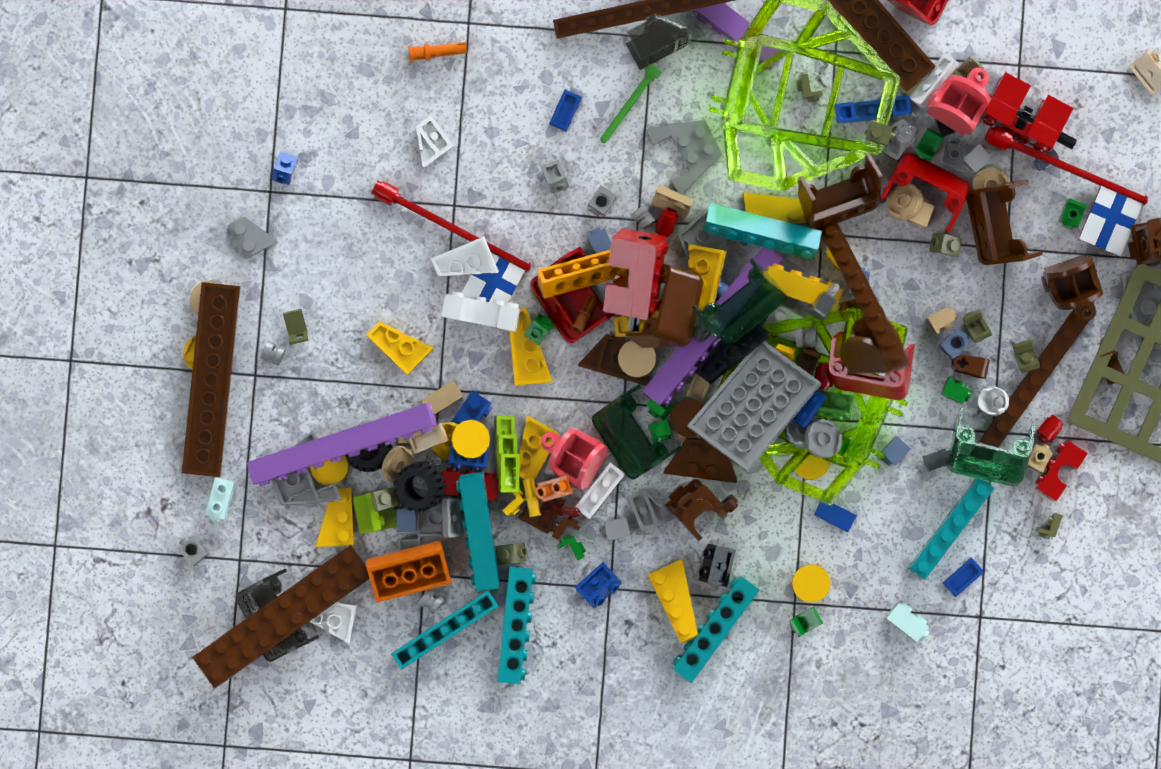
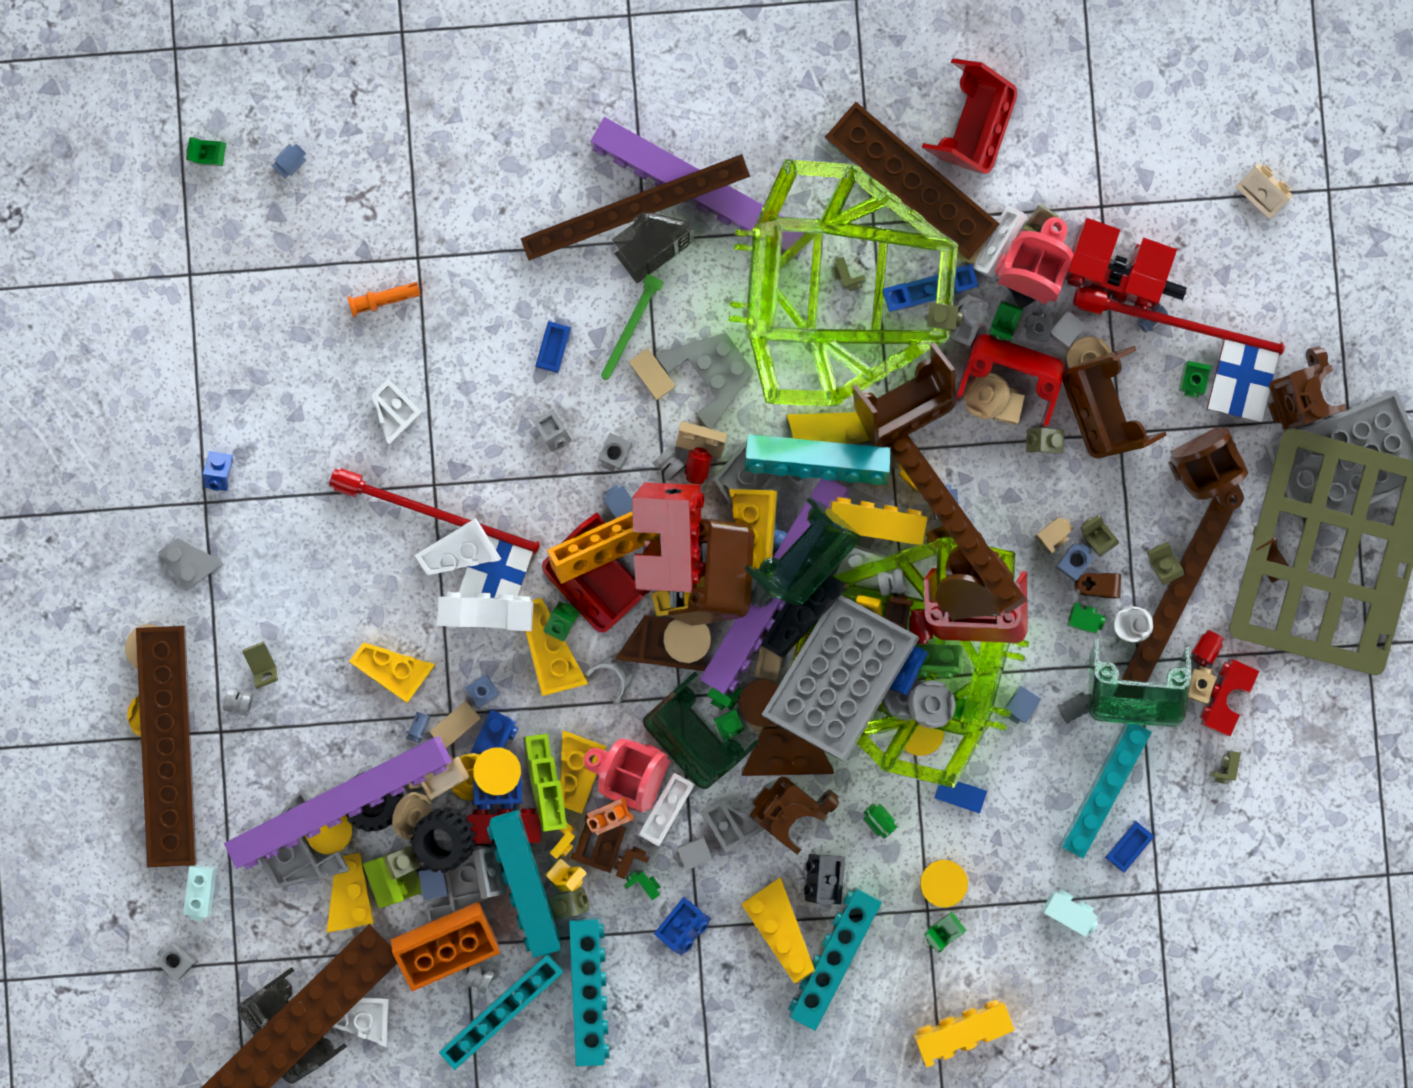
camera: 10 degrees left, 0 degrees up
(412, 396) = (418, 727): none -> sand blue pin
(468, 374) = (482, 691): none -> sand blue brick
(510, 531) = (565, 877): none -> yellow bracket
(531, 497) = (583, 831): yellow axle -> none
(573, 368) = (624, 674): none -> light grey helmet
(573, 511) = (637, 841): clear red piece -> none
(584, 314) = (614, 595): dark orange axle -> none
(641, 144) = (652, 374): none -> tan tile
(767, 525) = (879, 820): none -> green brick
(808, 703) = (963, 1031): none -> yellow wedge
(823, 303) = (907, 537): dark grey piece -> none

